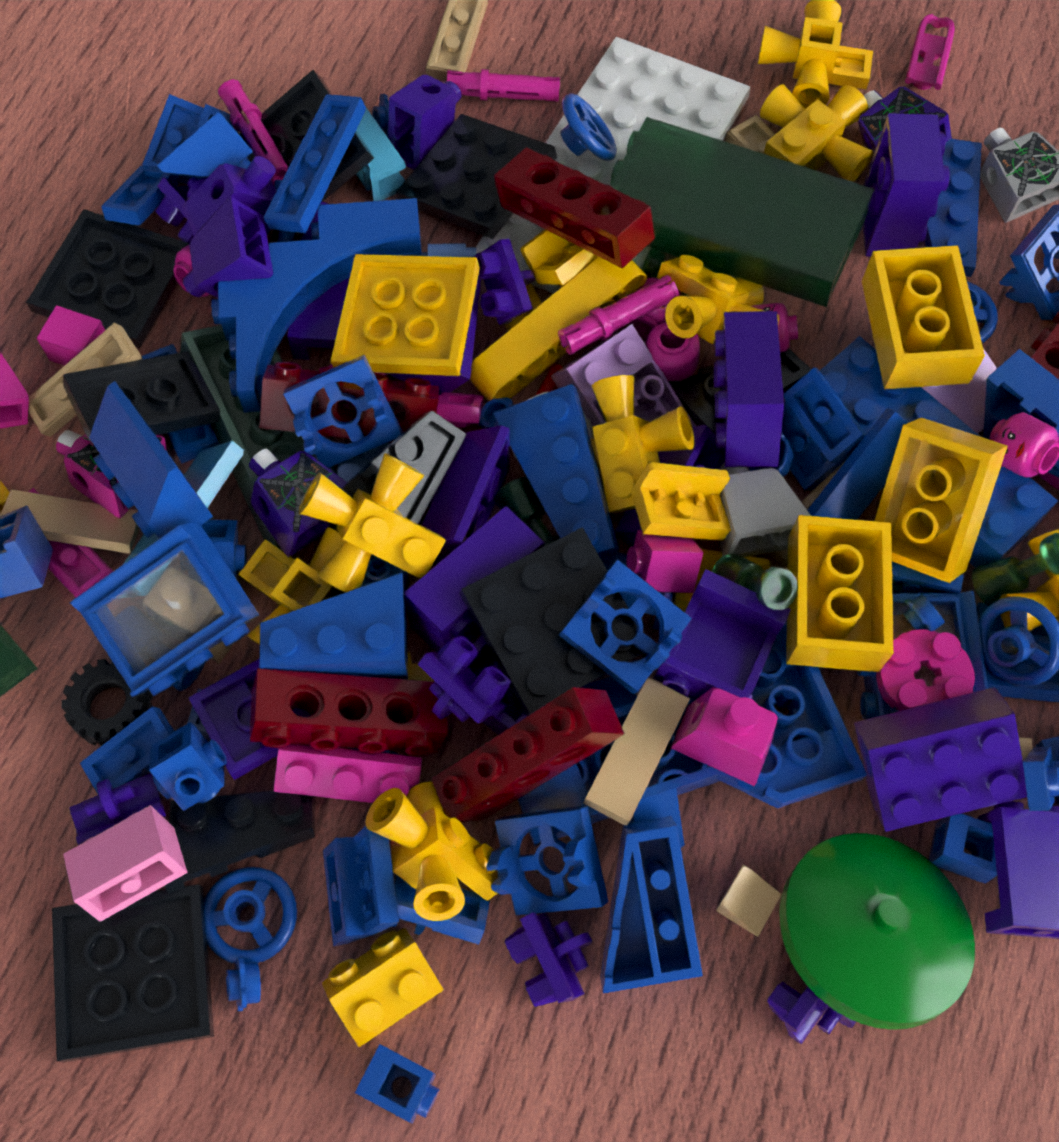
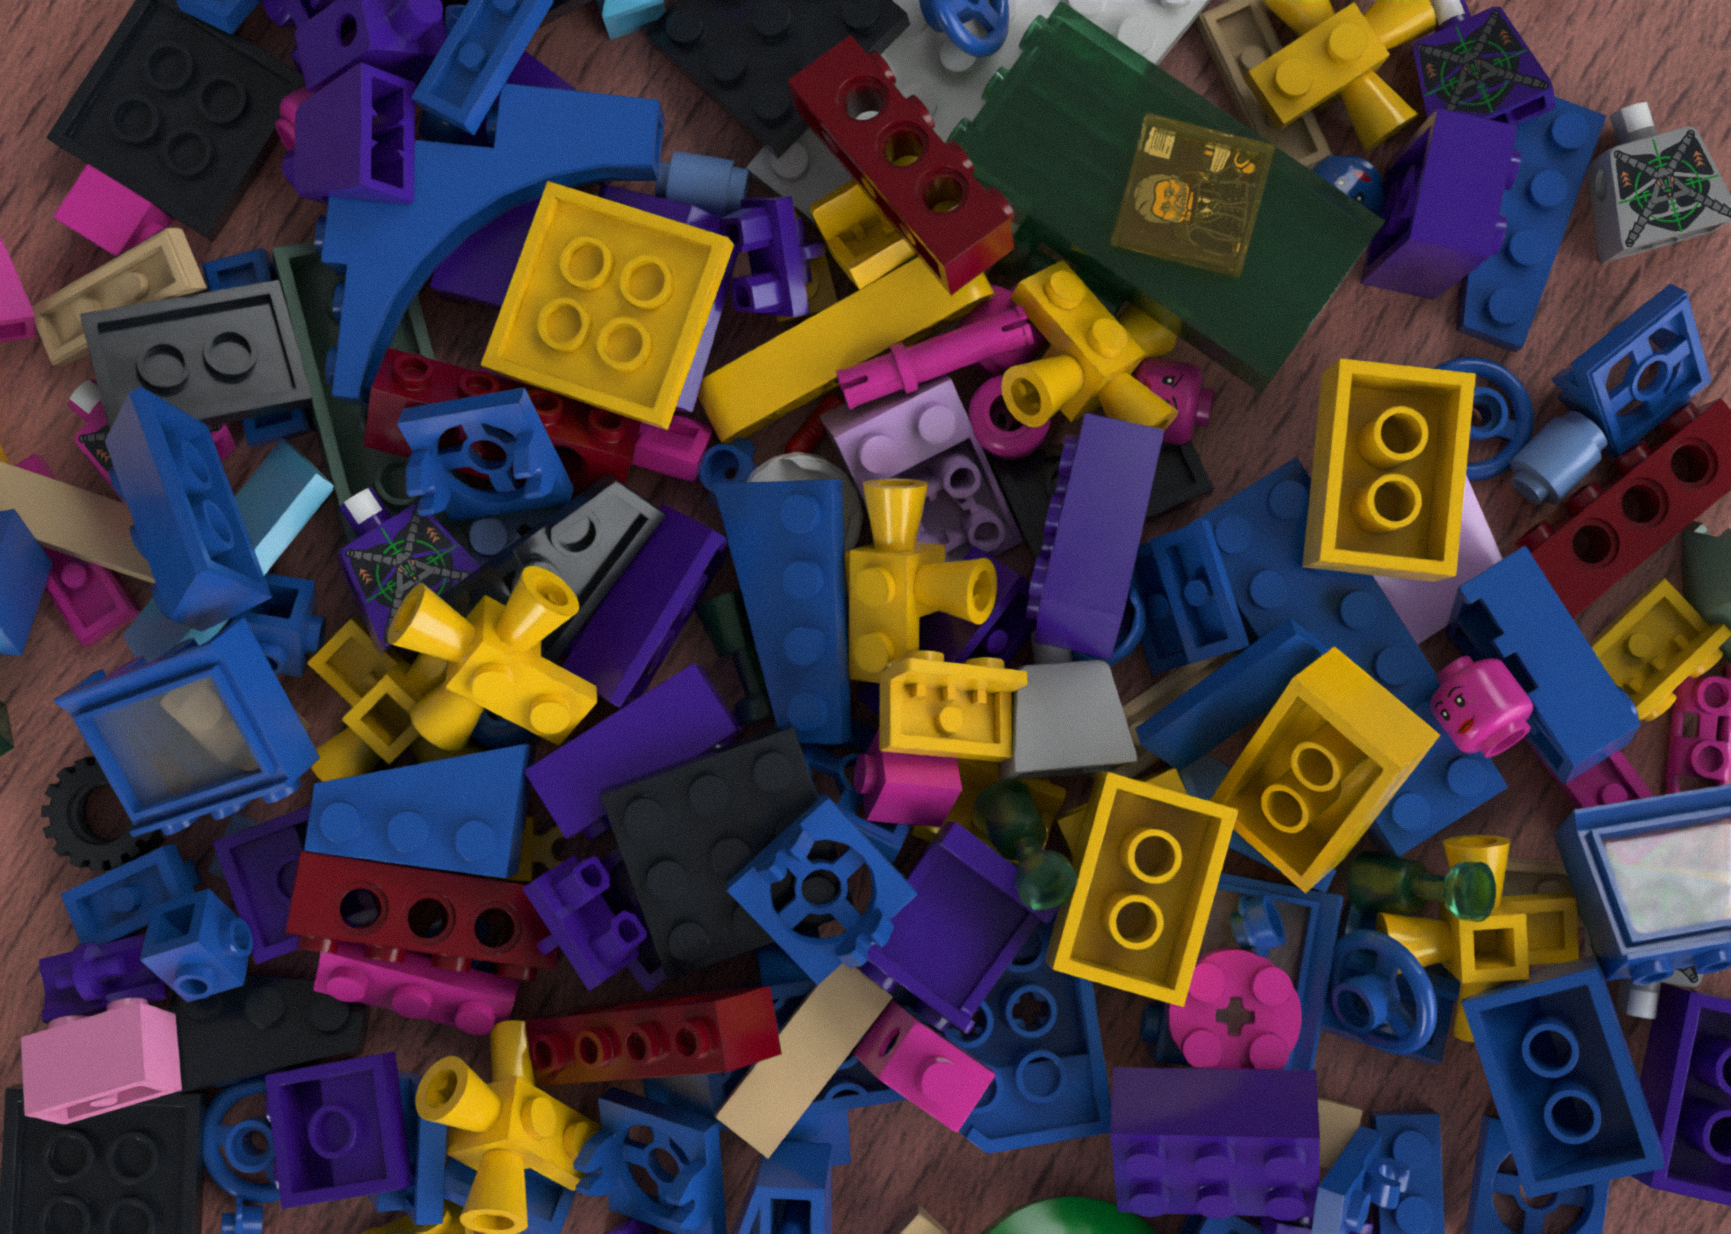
camera: 10 degrees right, 20 degrees up
(308, 878) = (338, 1130): none -> dark purple plate
(755, 194) = (1193, 195): none -> clear yellow tile
(1018, 321) = (1557, 458): none -> medium blue brick

